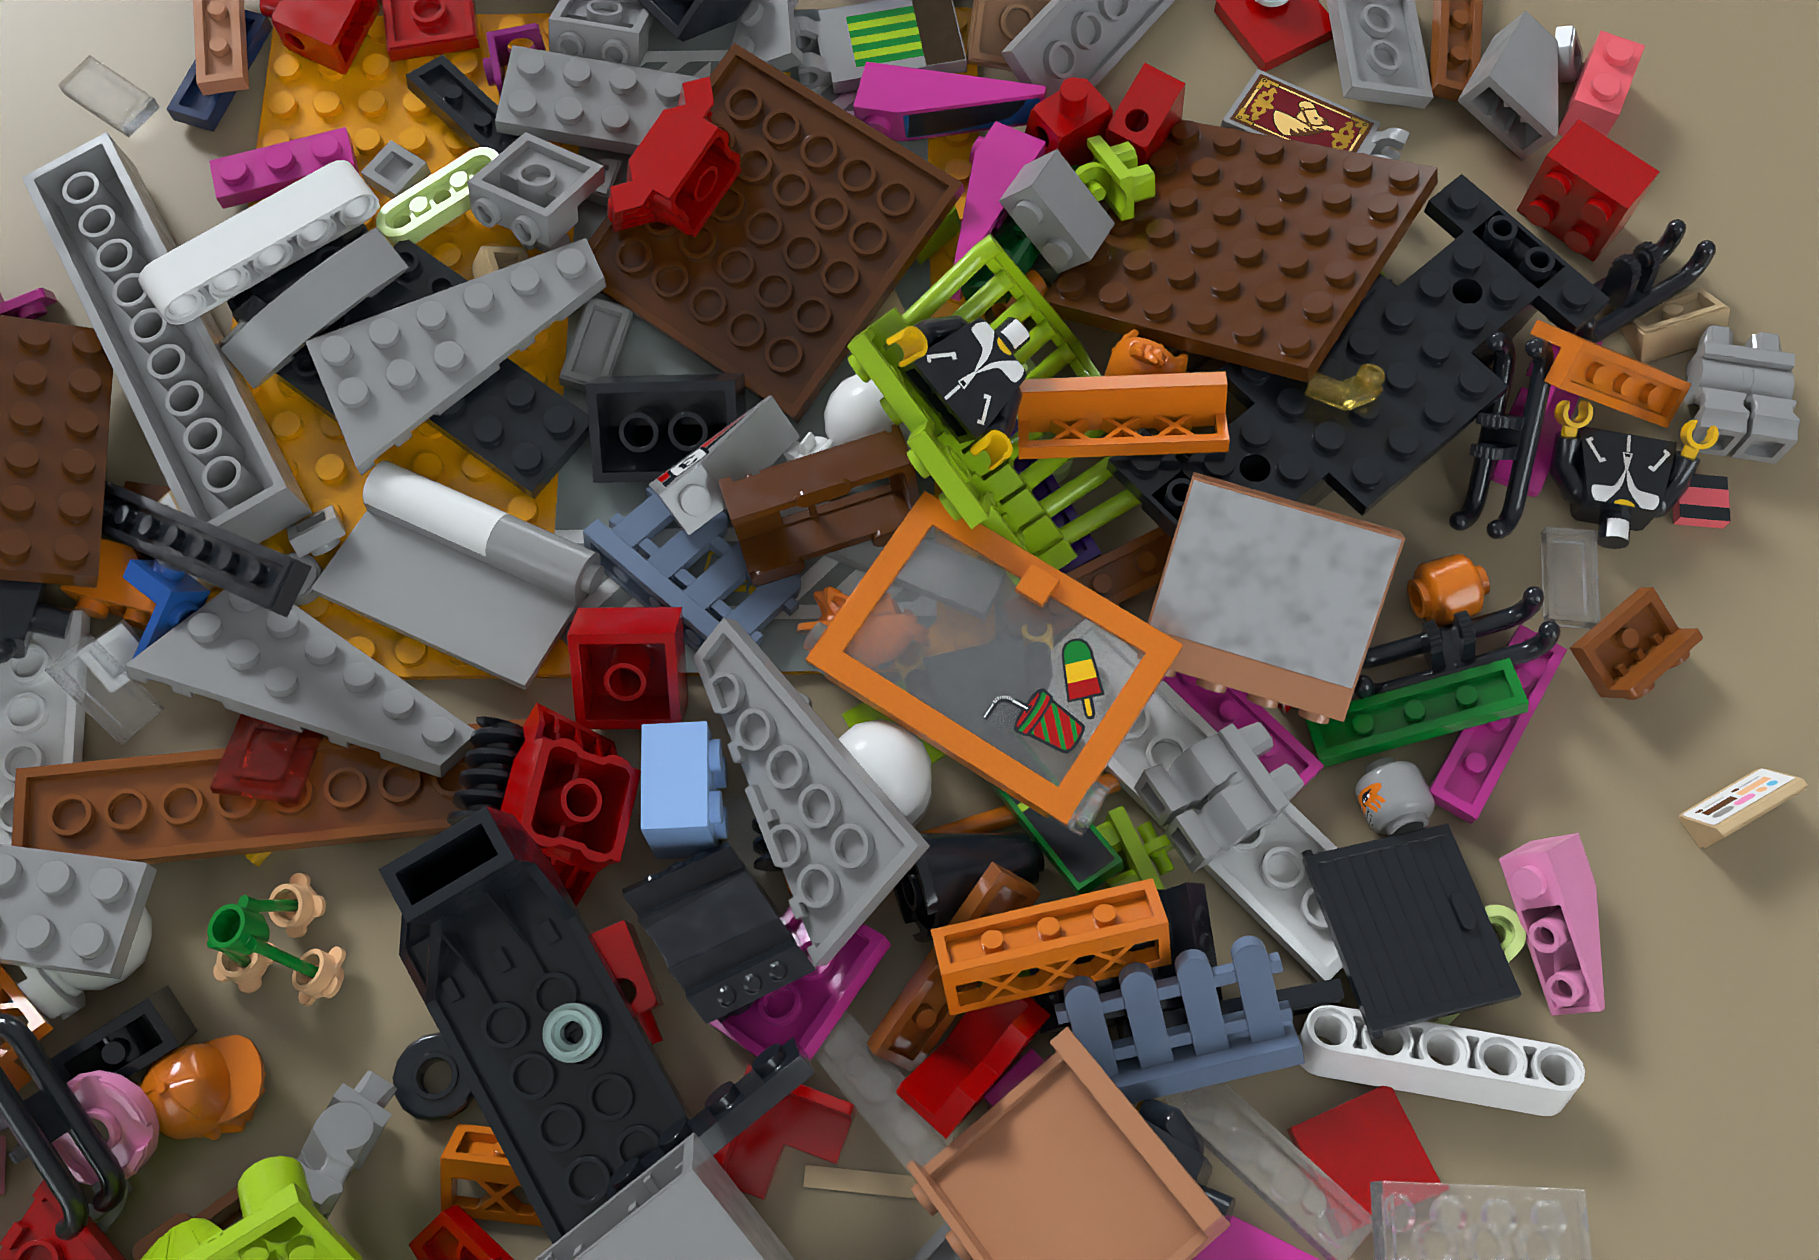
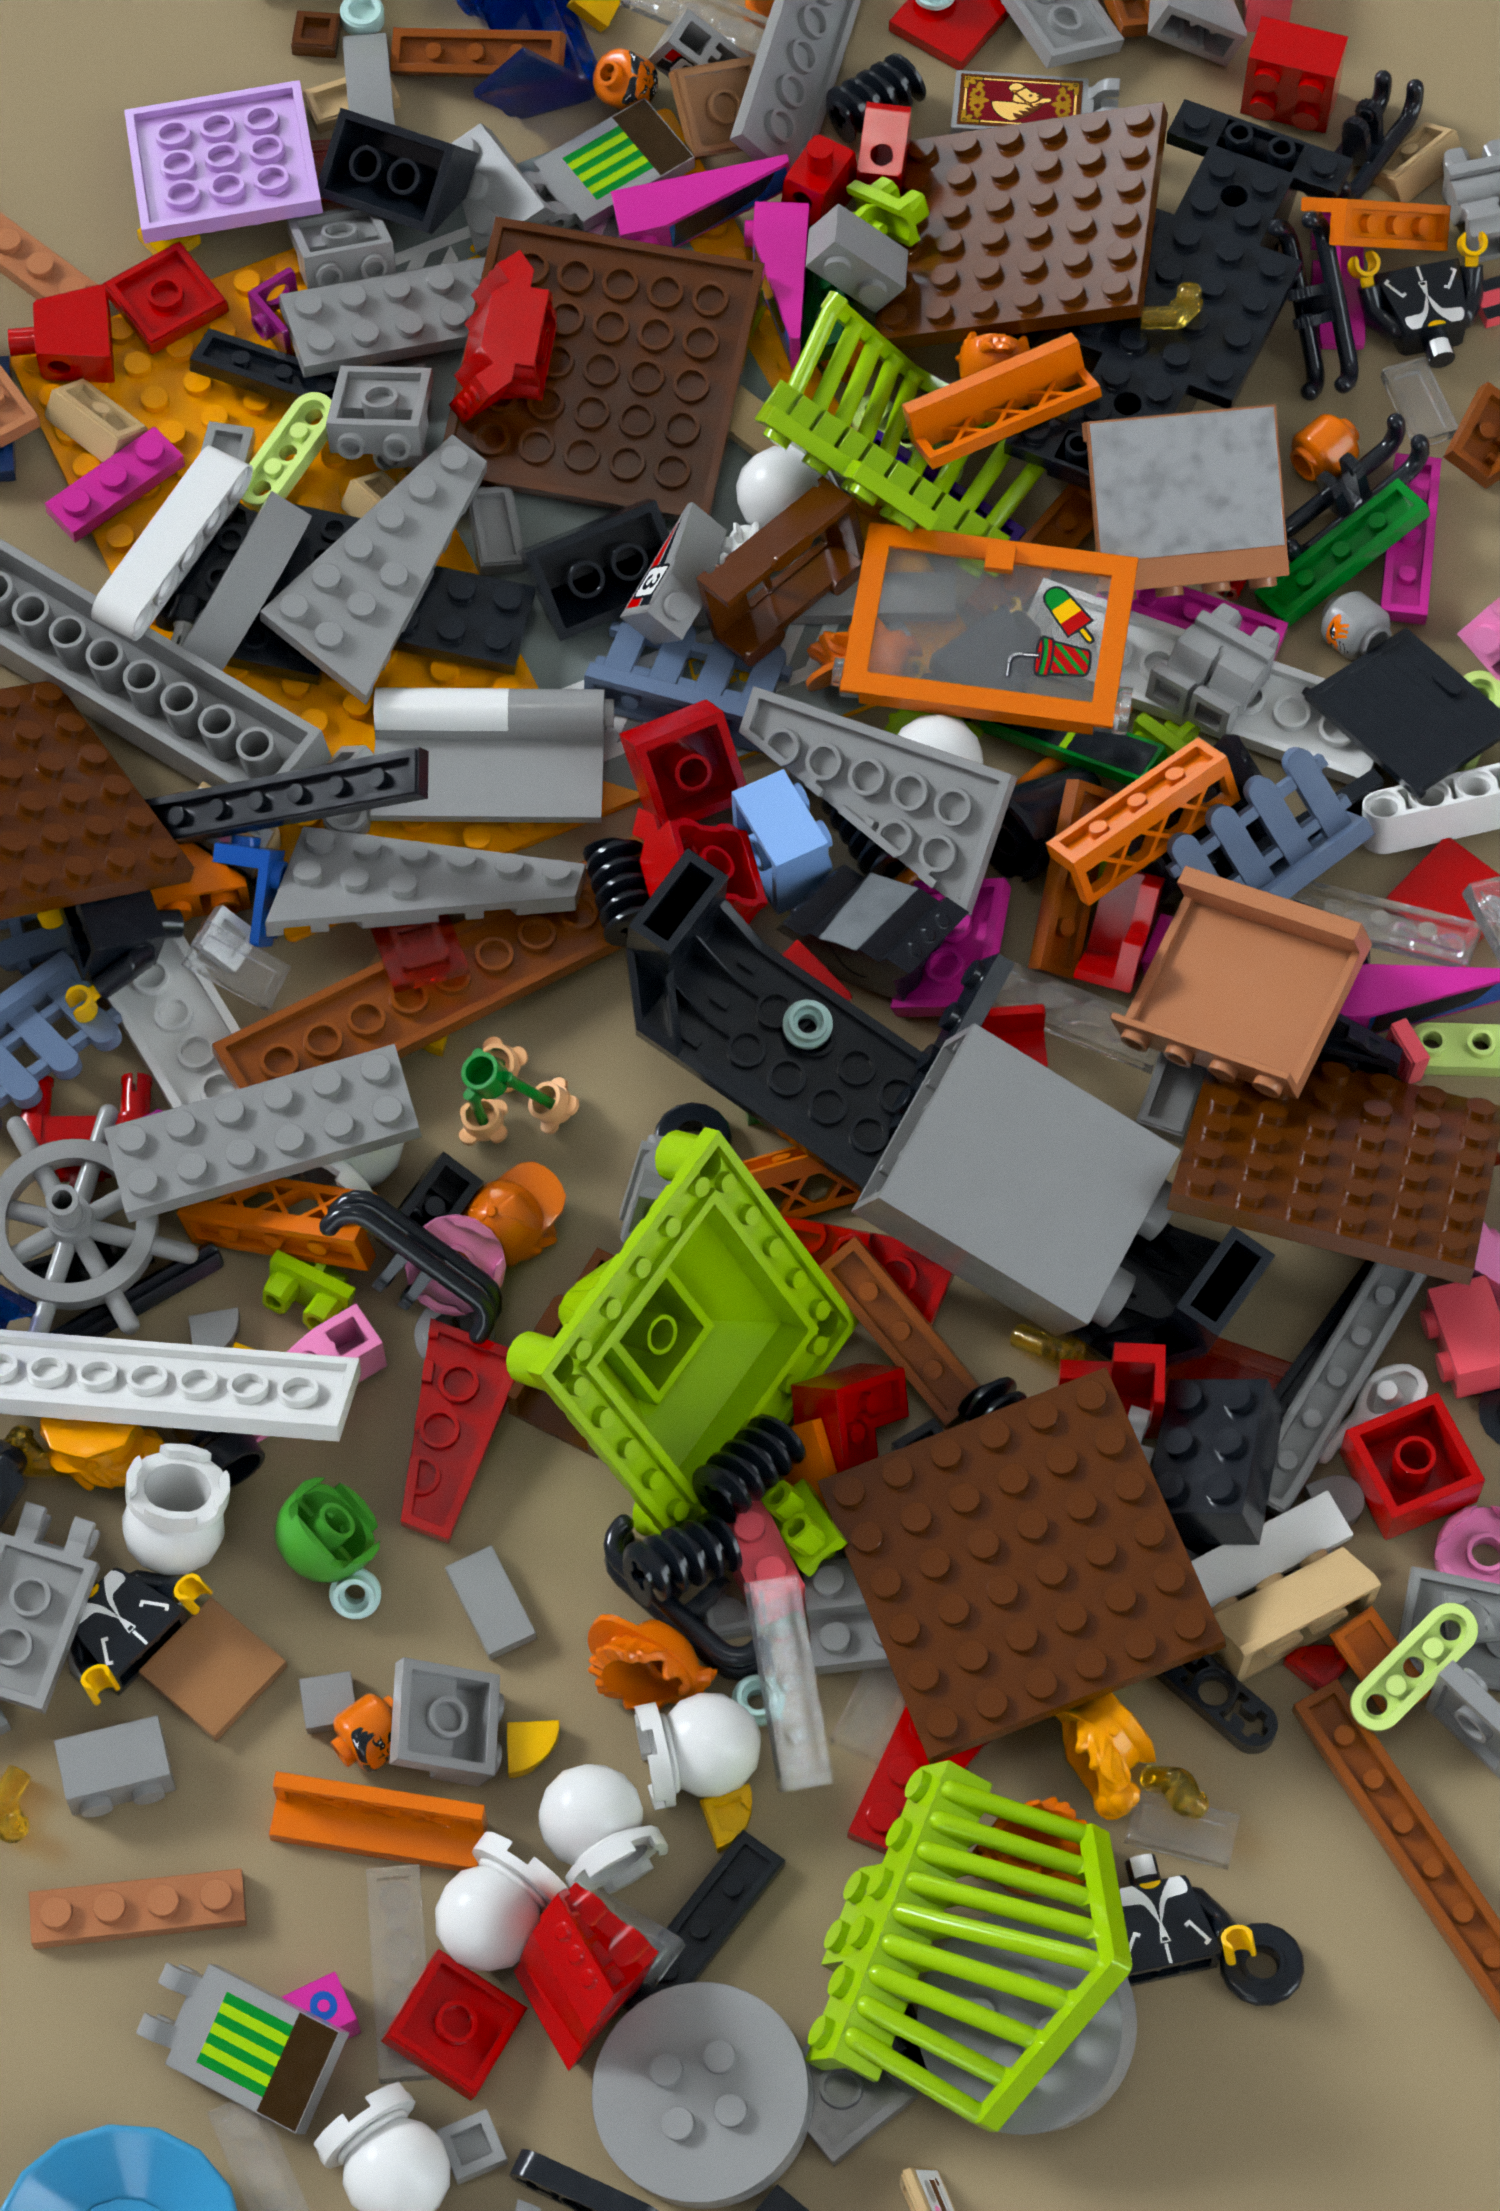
camera: 25 degrees left, 5 degrees down
(302, 97) = (92, 419): none -> tan slope
(858, 1181) = (1090, 1070): tan piece -> none
(968, 377) = (869, 414): black torso -> none
(1177, 57) = (885, 82): none -> black piece

